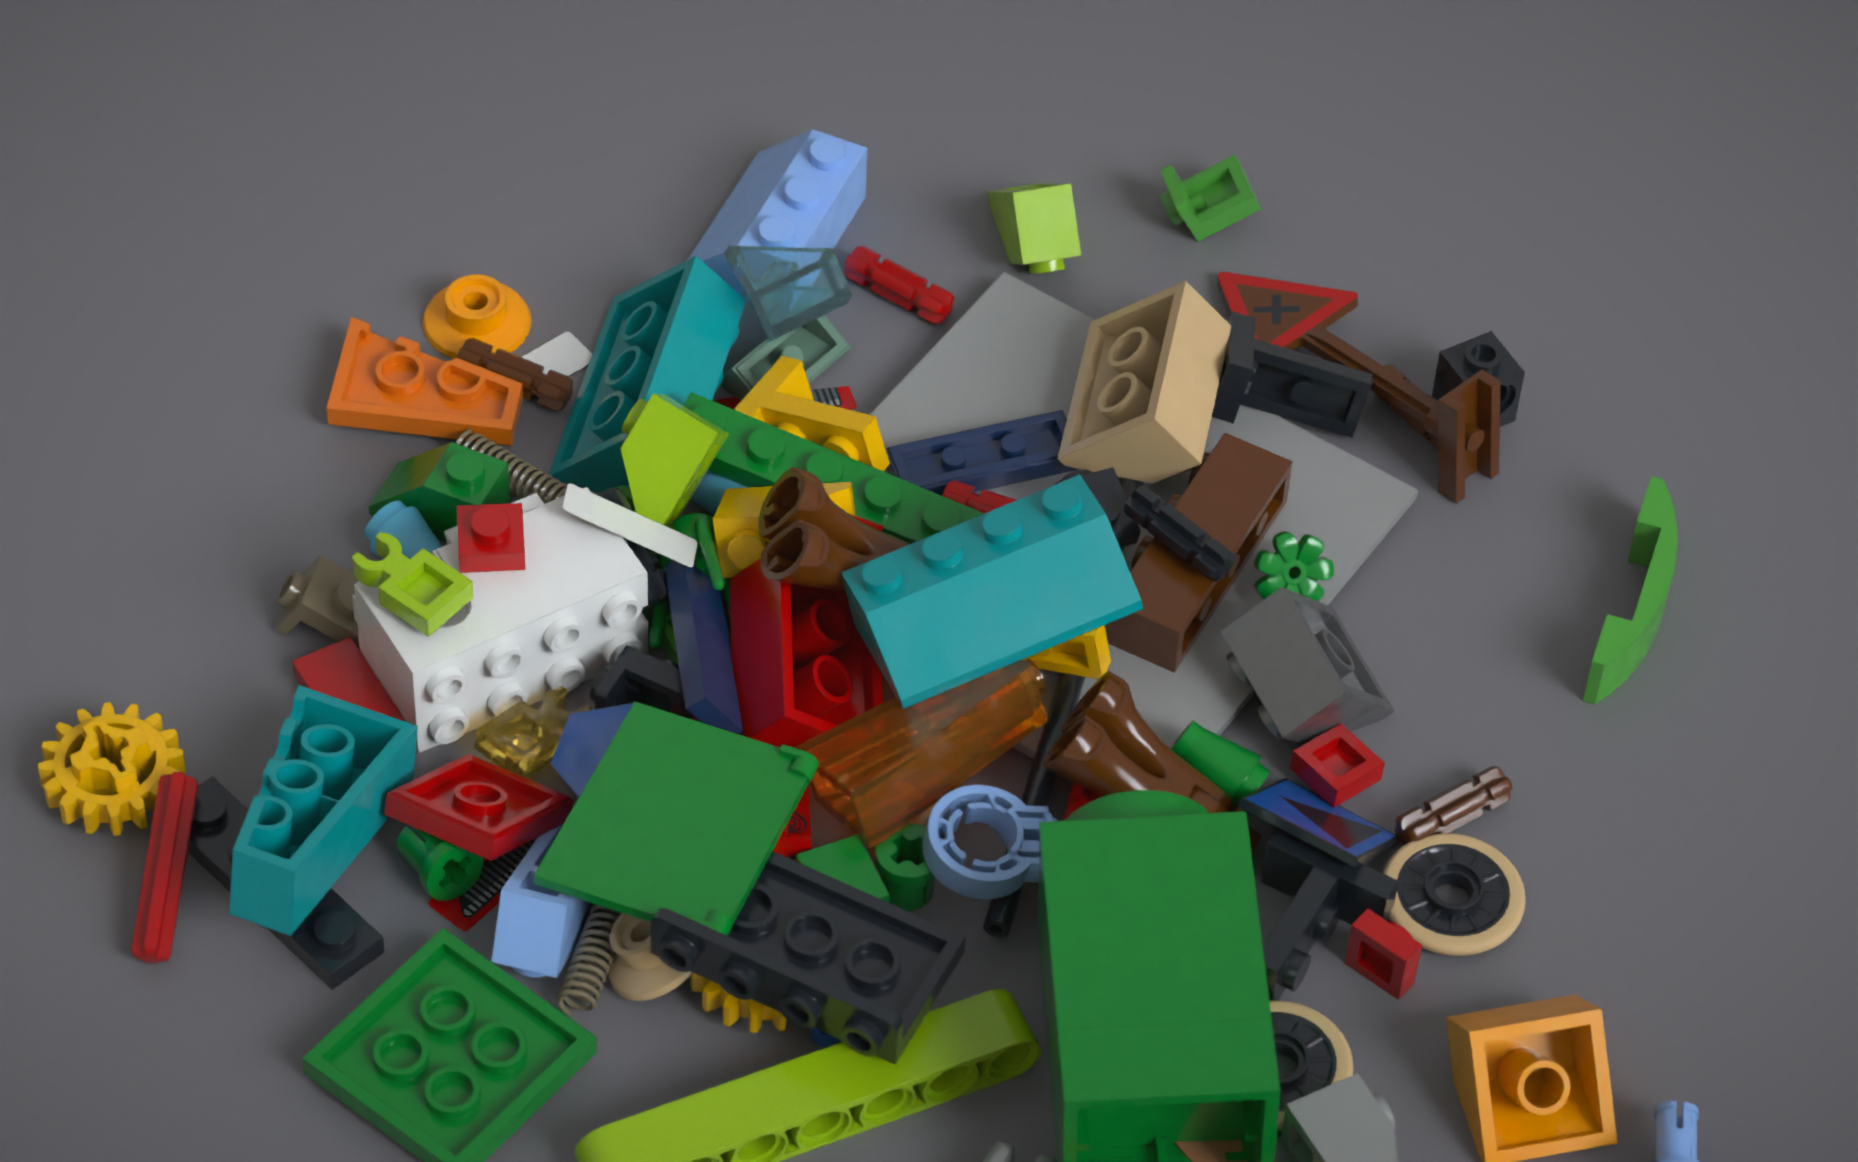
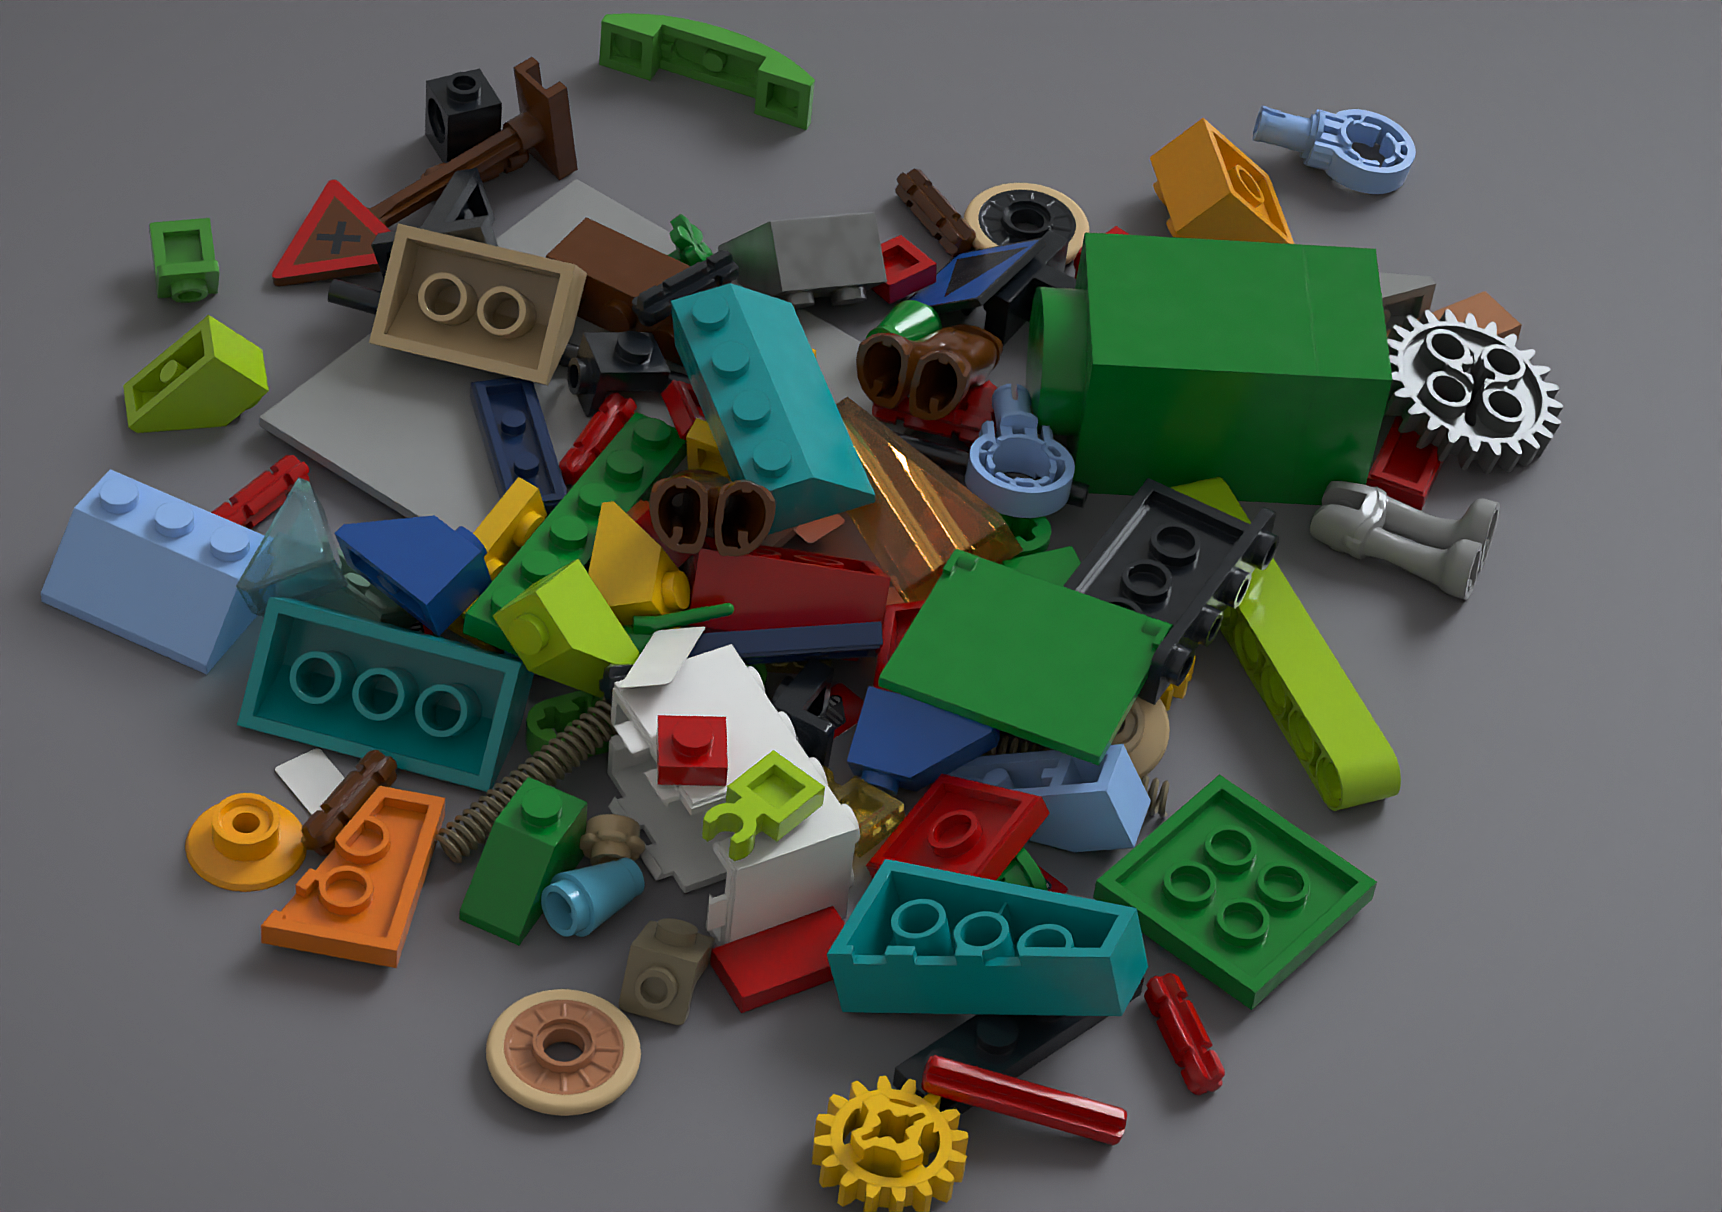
camera: 90 degrees left, 5 degrees down
(215, 571) = (557, 1087): none -> wheel
(267, 1012) = (1184, 1034): none -> red axle
(751, 359) = (419, 565): none -> blue slope

